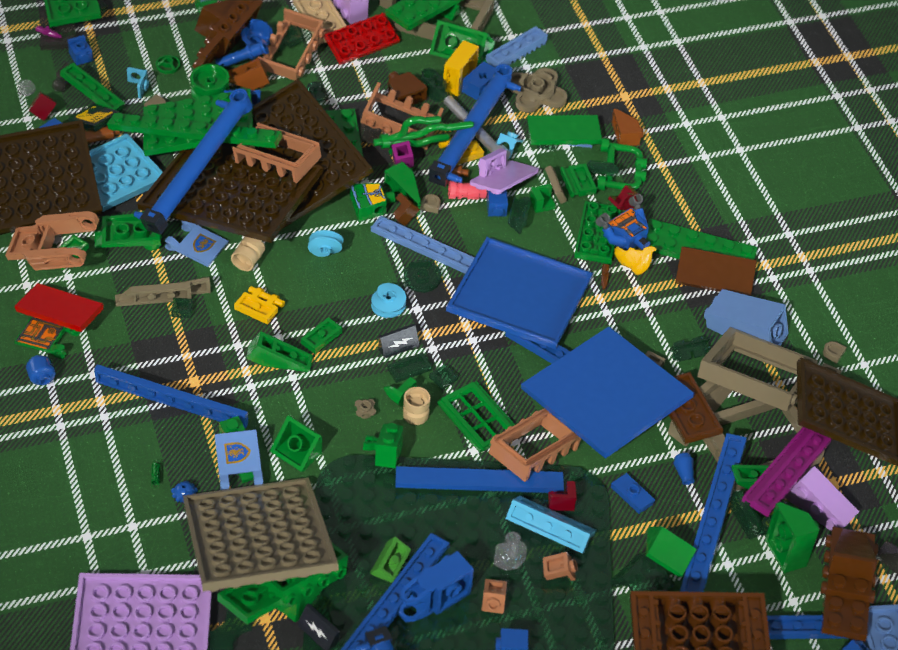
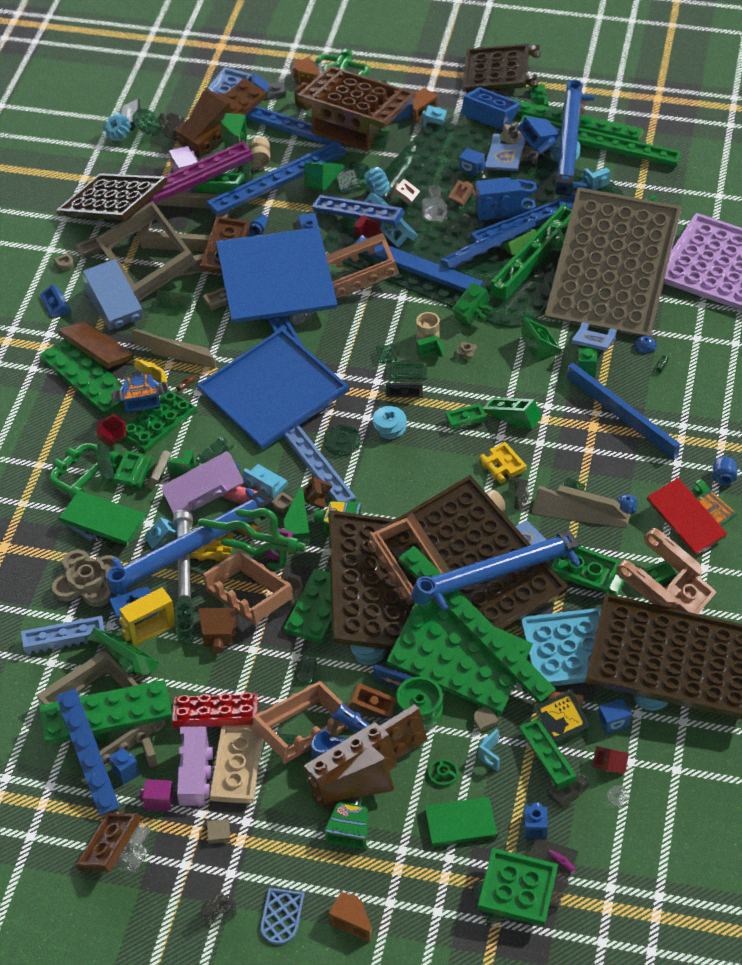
camera: 145 degrees left, 0 degrees up
(124, 313) = (627, 503): none -> blue animal
(136, 38) = (460, 822): none -> green tile
(228, 284) = (520, 488): none -> clear smoke bracket
(325, 242) = (411, 486): medium azure piece -> none
(361, 547) = (529, 255): none -> green tile
(418, 530) = (493, 240): none -> blue plate
(460, 211) = (265, 480): none -> medium azure bracket
(463, 425) = (366, 322): green piece -> none
(589, 512) = (356, 209): none -> blue plate
(596, 557) = (377, 181): none -> medium azure gear
(626, 128) = (44, 498): dark orange slope -> none
(645, 297) = (174, 349): none -> dark tan wedge
(762, 558) = (261, 151): none -> tan wheel
(799, 308) = (55, 301): none -> blue slope

